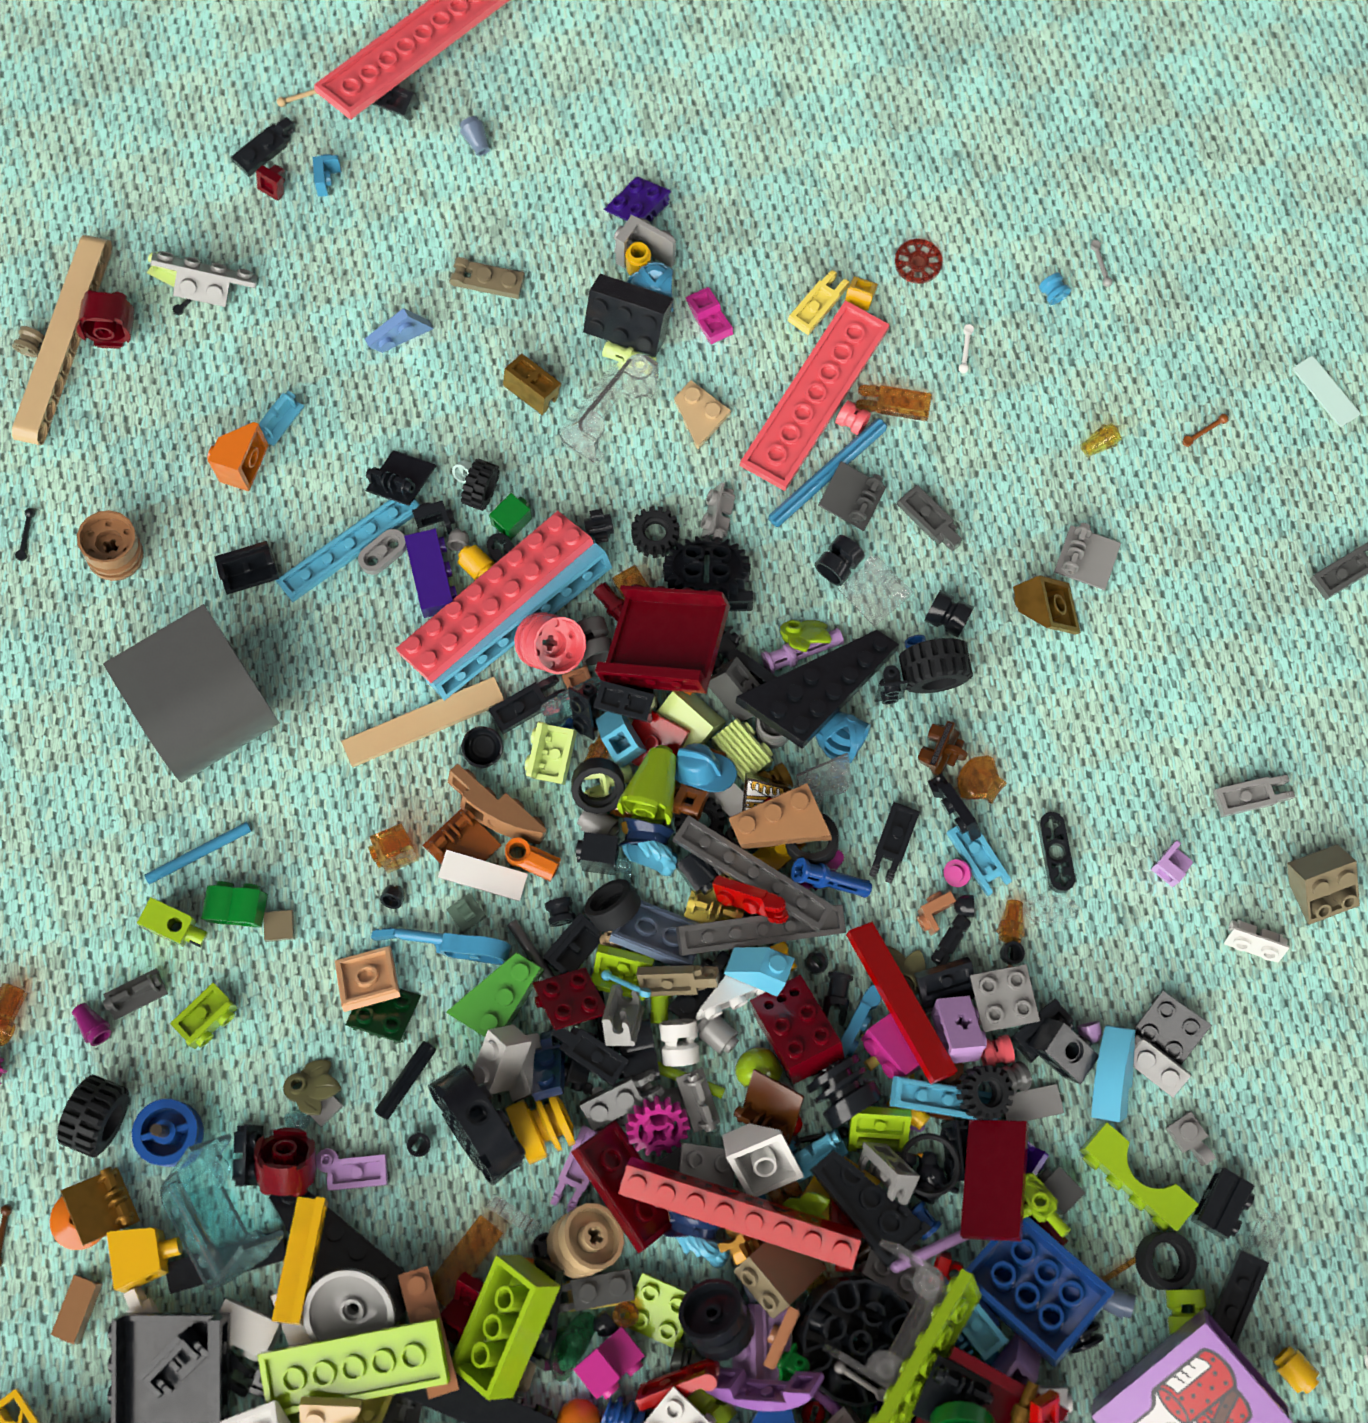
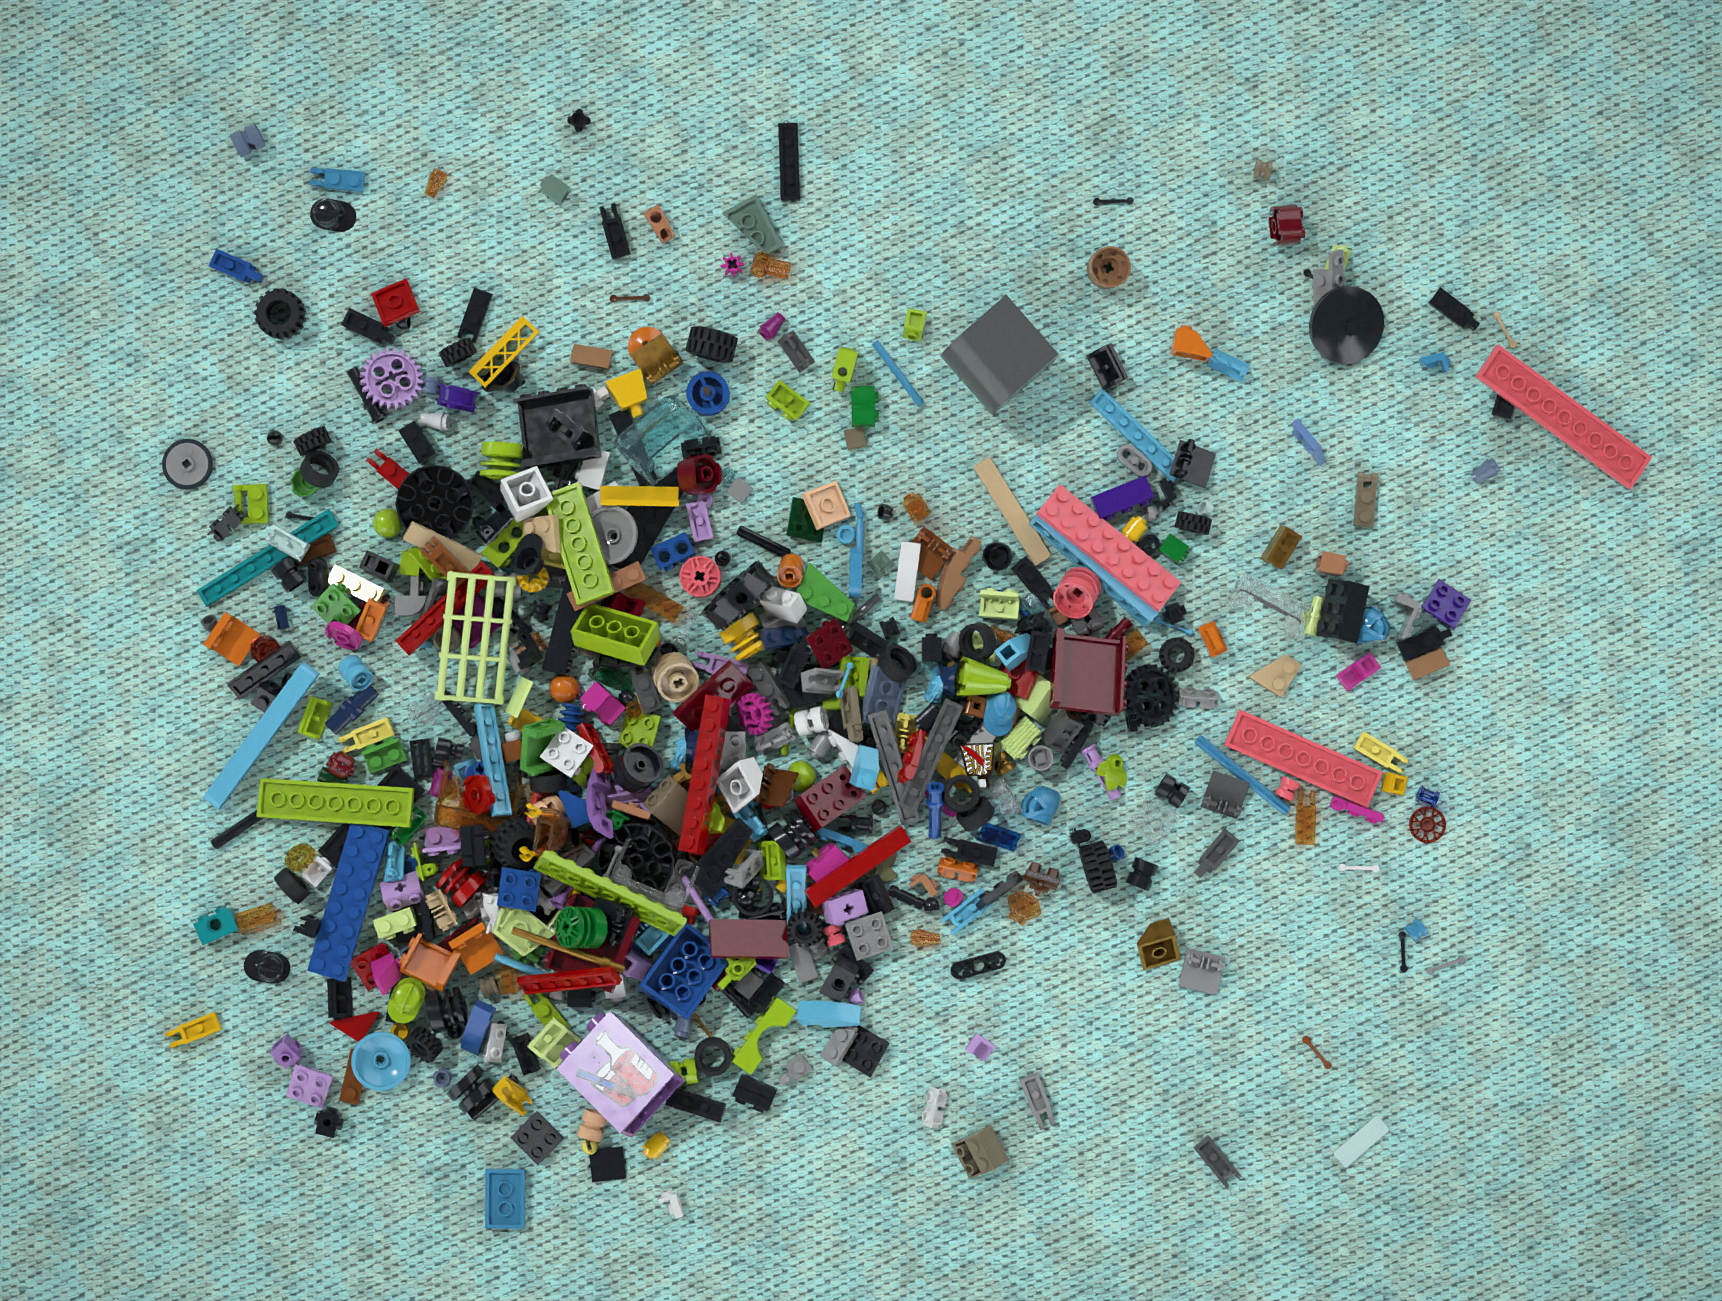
camera: 85 degrees right, 15 degrees up
(60, 342) = (1269, 194): tan beam -> none
(134, 819) = (914, 324): none -> lime bracket
(253, 265) = (1346, 324): none -> black dish
(270, 181) = (1422, 322): dark red tile -> none
(315, 1087) = (752, 483): olive plate -> none
(388, 1222) = (671, 547): none -> blue brick
(415, 957) = (845, 534): none -> medium azure tile
(453, 1043) = (790, 570): none -> orange wheel
(456, 1186) = (703, 565): none -> coral wheel
(563, 322) = (1331, 564): none -> nougat brick
(627, 514) = (1158, 620): none -> medium azure hinge
(637, 256) = (1399, 611): yellow brick -> none
(640, 483) = (1212, 639): none -> orange piece
(682, 229) = (1422, 642): none -> black hinge
(711, 234) = (1427, 663): none -> medium nougat slope
(781, 820) = (966, 771): medium nougat wedge -> none
(813, 693) = (1064, 781): black wing -> none
(852, 818) = (977, 816): none -> black tyre
(877, 798) = (999, 836): none -> clear blue hinge
(882, 254) = (1431, 801): none -> clear blue bush
(890, 340) = (1355, 809): none -> dark pink hinge
(920, 850) = (948, 866): none -> orange hinge
(1016, 953) = (902, 943): black hinge -> none
(1083, 1172) = (765, 992): none -> black hinge
(1086, 1207) = (738, 1000): none -> black axle
(1100, 313) = (1403, 967): none -> black hinge
(1102, 439) = (1295, 974): clear yellow cone -> none

